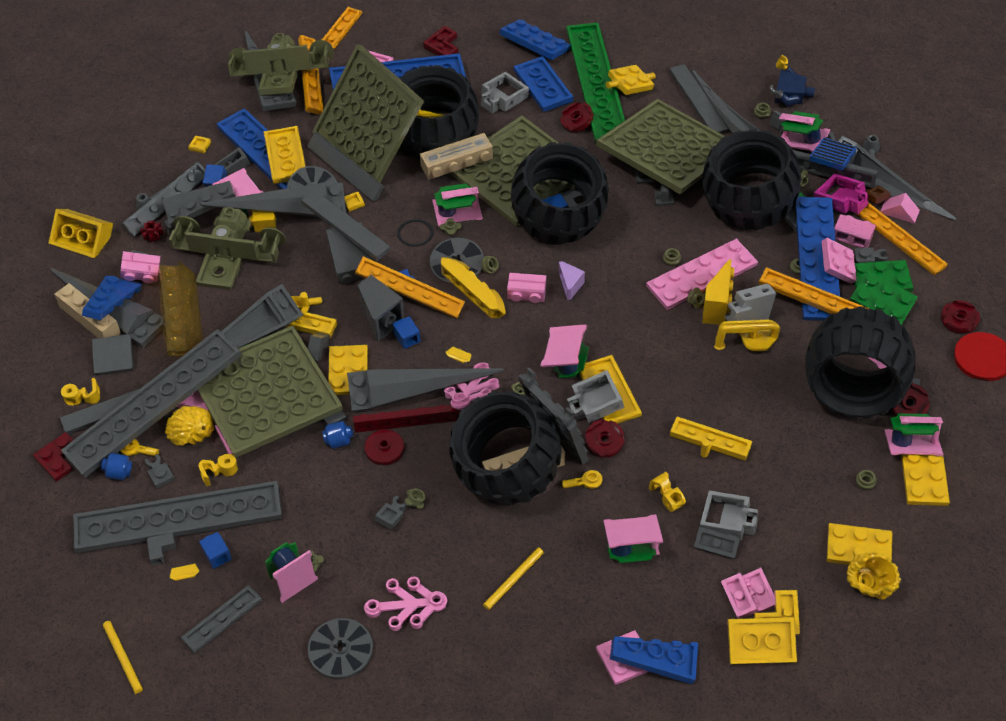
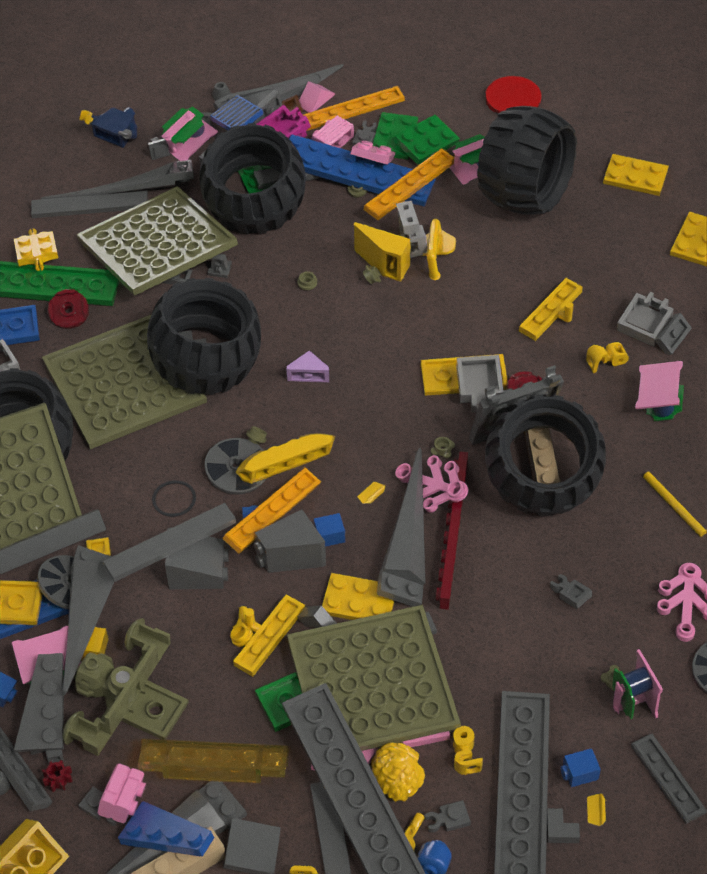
camera: 75 degrees left, 0 degrees up
(263, 318) = (266, 659): dark grey plate -> none
(337, 434) = (454, 622): blue head -> none
(384, 455) = (479, 593): dark red plate -> none
(415, 498) = (558, 565): olive plate -> none
(450, 226) = (182, 465): olive plate -> none
(456, 156) = (87, 426): tan brick -> none
(458, 203) = (154, 446): piece -> none
(526, 287) = (304, 409): bright pink brick -> none
(566, 350) = (412, 388): bright pink piece -> none
(676, 284) = (338, 264): bright pink plate -> none
(762, 110) = (133, 158): olive plate -> none
(866, 474) = (628, 213): olive plate -> none
(914, 434) = (595, 163): piece -> none
(969, 317) = (464, 97): dark red plate -> none

